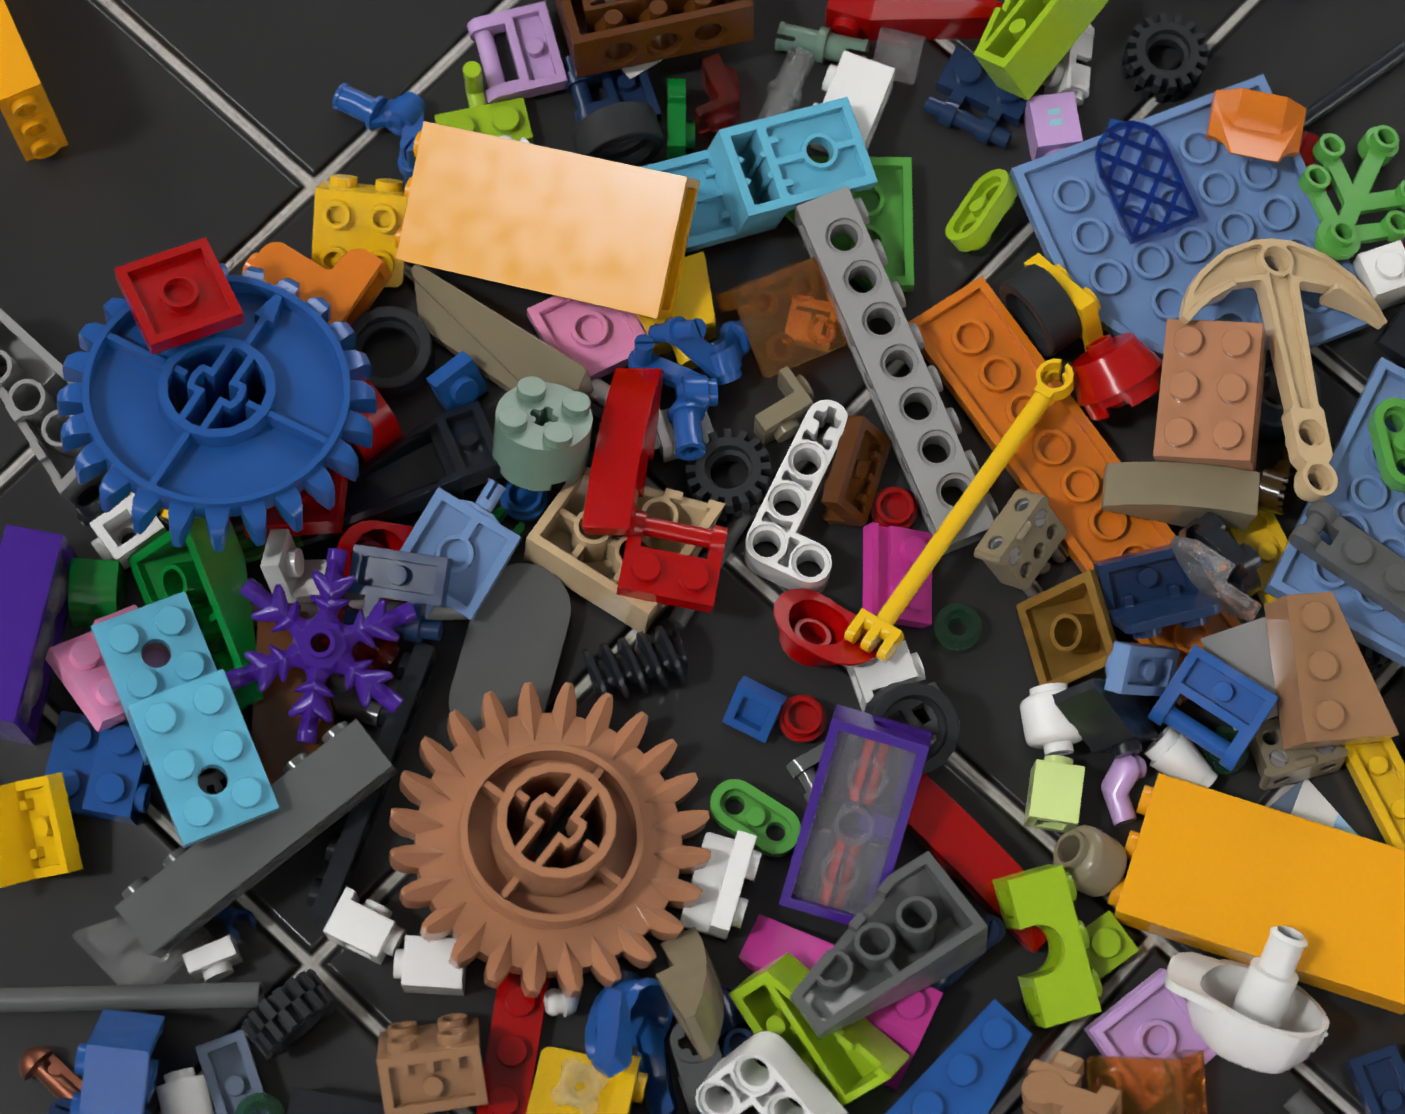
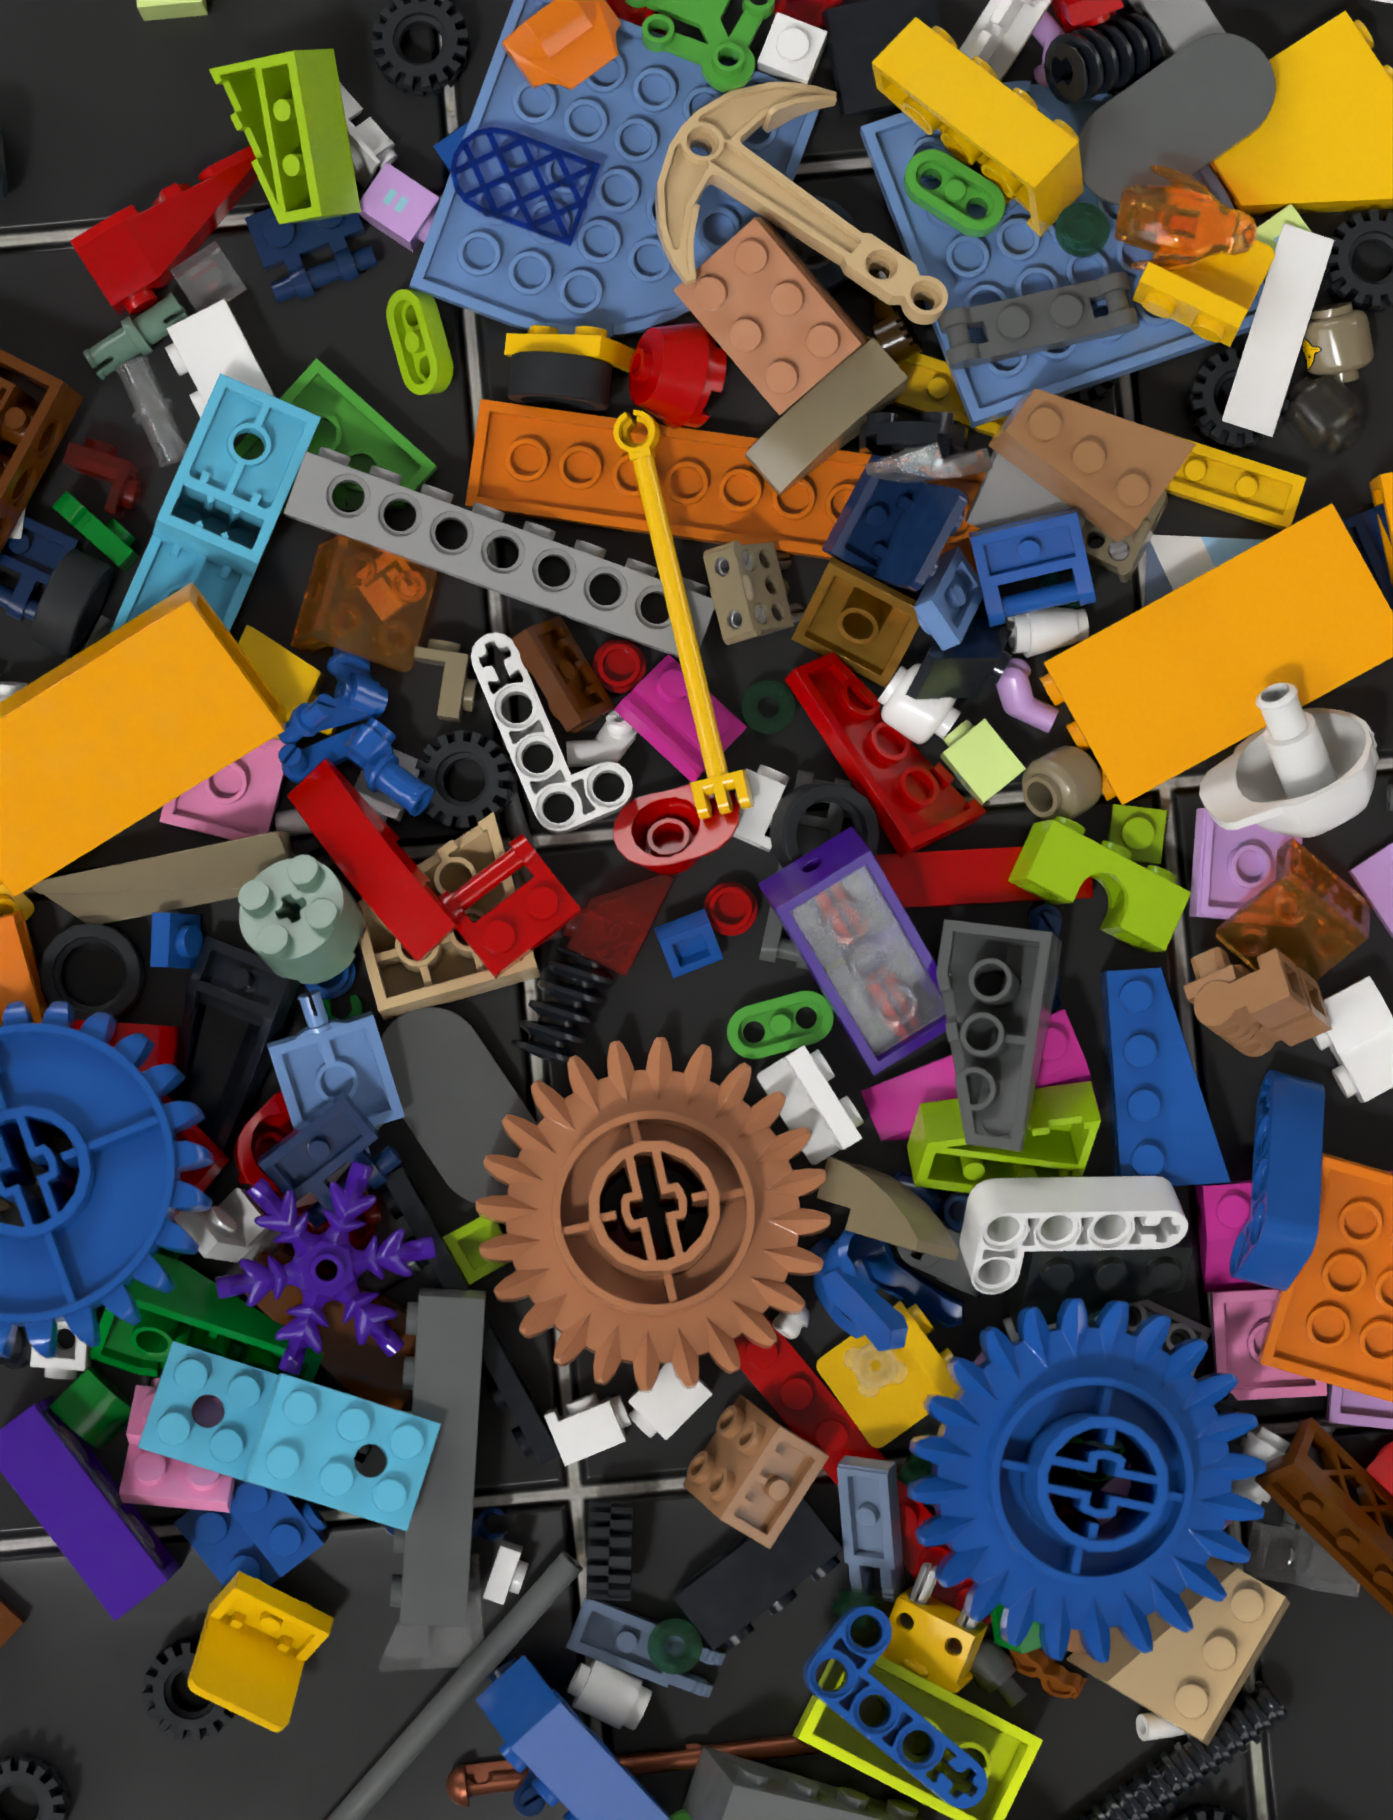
camera: 45 degrees left, 15 degrees up
(408, 753) = (465, 1245): none -> lime plate
(726, 650) = (618, 923): none -> clear red slope
(841, 547) = (608, 745): none -> white arm
(987, 759) = (904, 789): none -> red wing

